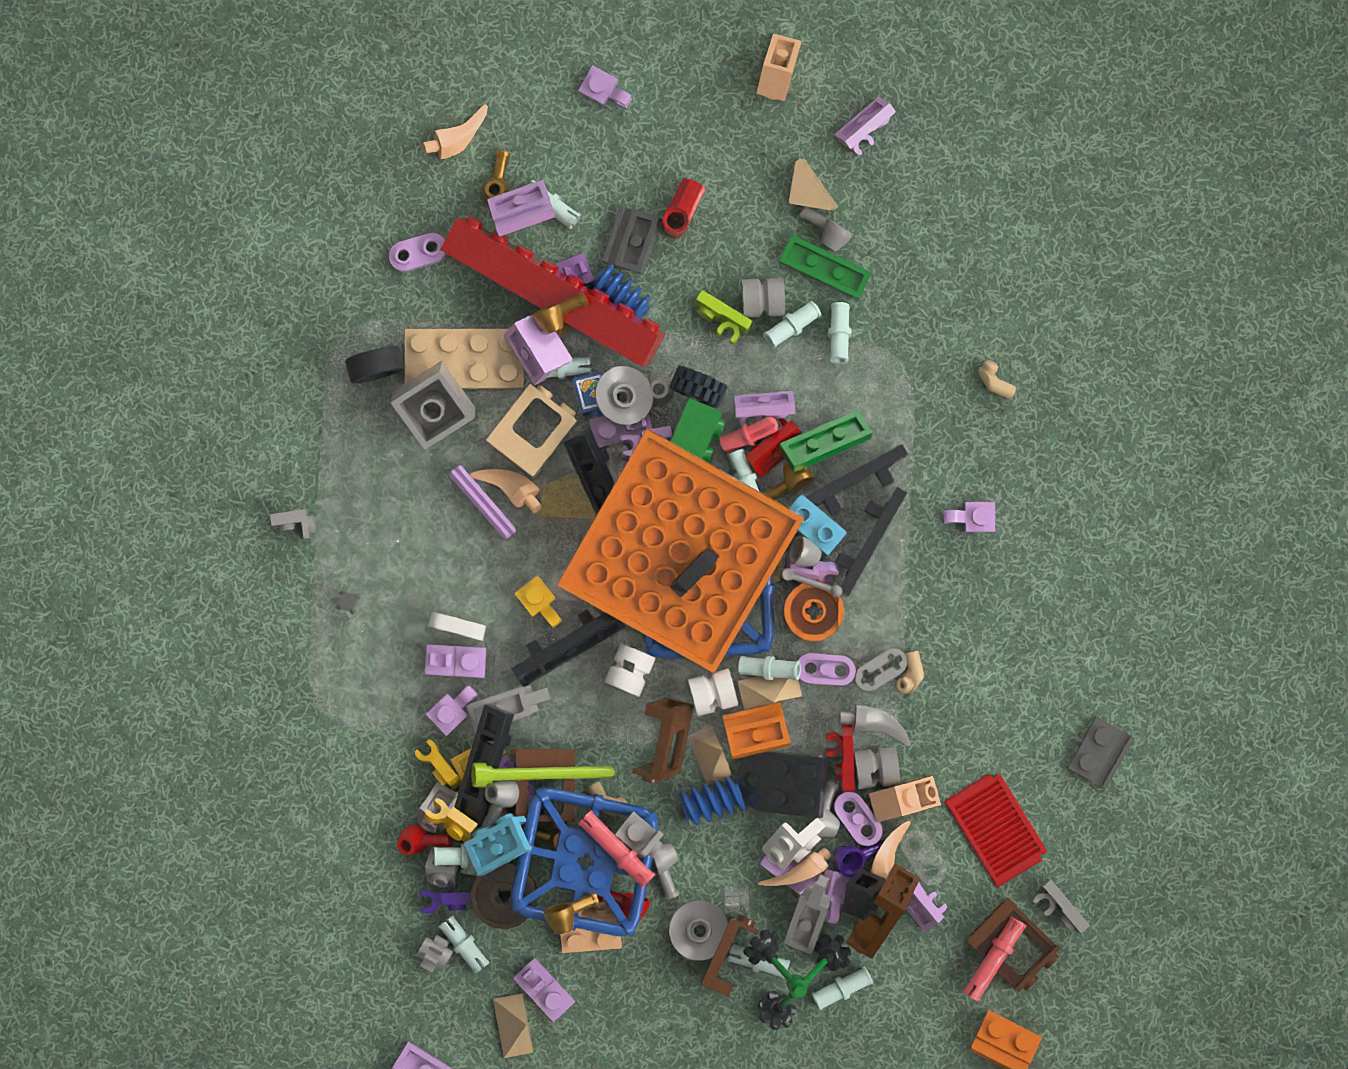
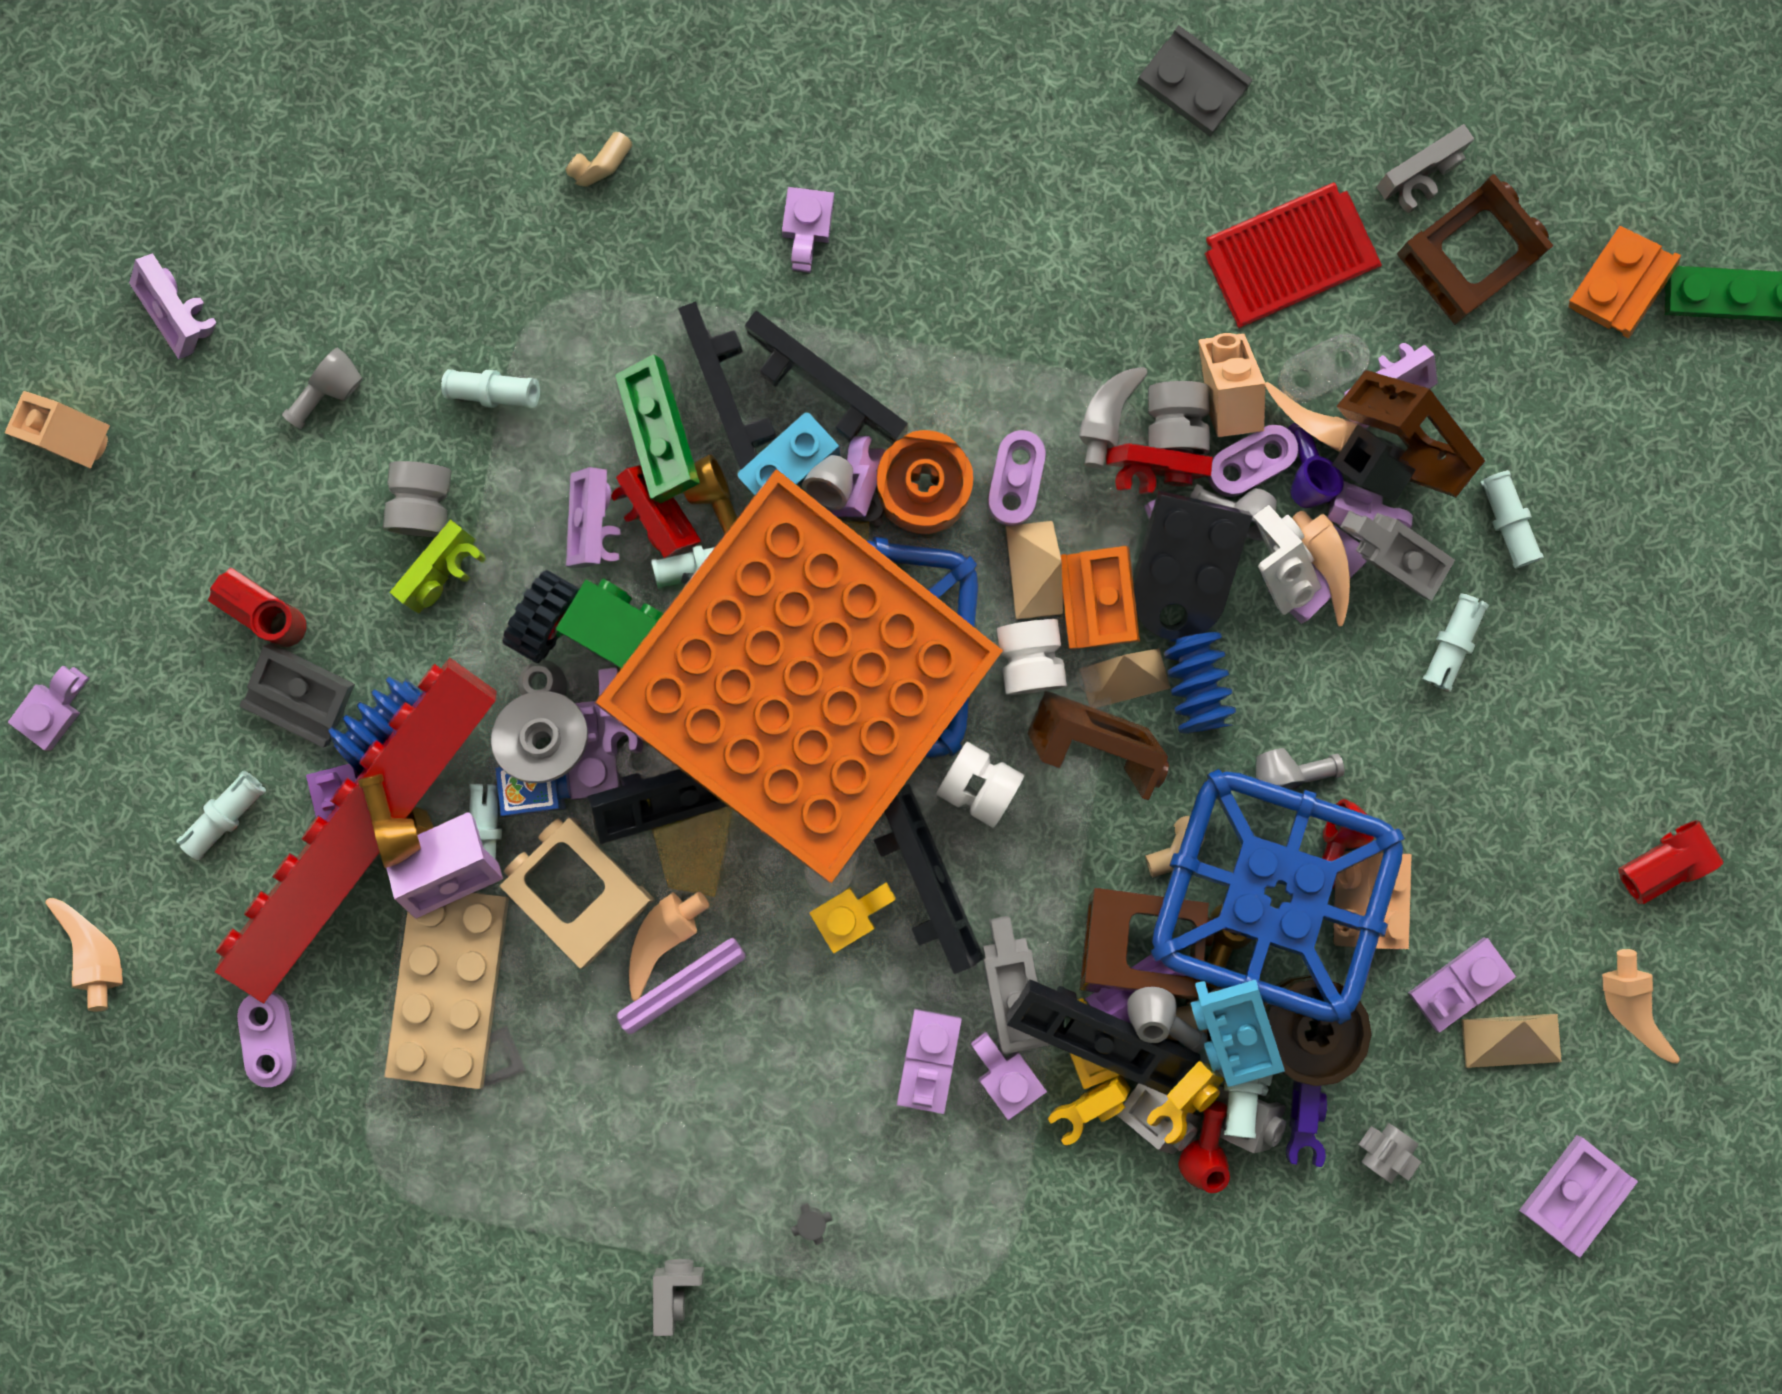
camera: 85 degrees left, 0 degrees up
(374, 364) = (432, 1135): black tyre -> none
(433, 405) = (512, 1048): light grey brick -> none
(456, 626) = (874, 1052): white beam -> none
(463, 944) = (1378, 1103): light aqua pin -> none
(484, 774) = (1123, 1038): lime piece -> none
(498, 176) = (198, 895): pearl gold bar -> none
(521, 208) = (213, 864): lavender plate -> none
(561, 916) = (1365, 943): pearl gold bar -> none
(616, 849) = (1268, 840): coral pin -> none
(639, 836) = (1249, 802): light grey bracket -> none
(685, 922) = (1424, 735): light grey dish -> none
(694, 571) = (839, 656): black beam -> none
(710, 976) = (1473, 716): reddish brown window -> none
(736, 899) = (1356, 664): clear wheel -> none
(748, 434) = (630, 548): coral axle -> none
(765, 949) = (1531, 623): black plant -> none
(769, 667) = (1004, 563): light aqua pin -> none
(788, 575) = (862, 509): light grey hinge -> none
(792, 324) = (466, 461): light aqua pin -> none
(808, 189) = (257, 407): tan slope -> none
(825, 267) = (384, 398): green plate -> none
(885, 676) = (1037, 388): light grey beam -> none
(913, 675) = (1039, 348): tan arm -> none
(995, 957) = (1495, 278): coral pin -> none

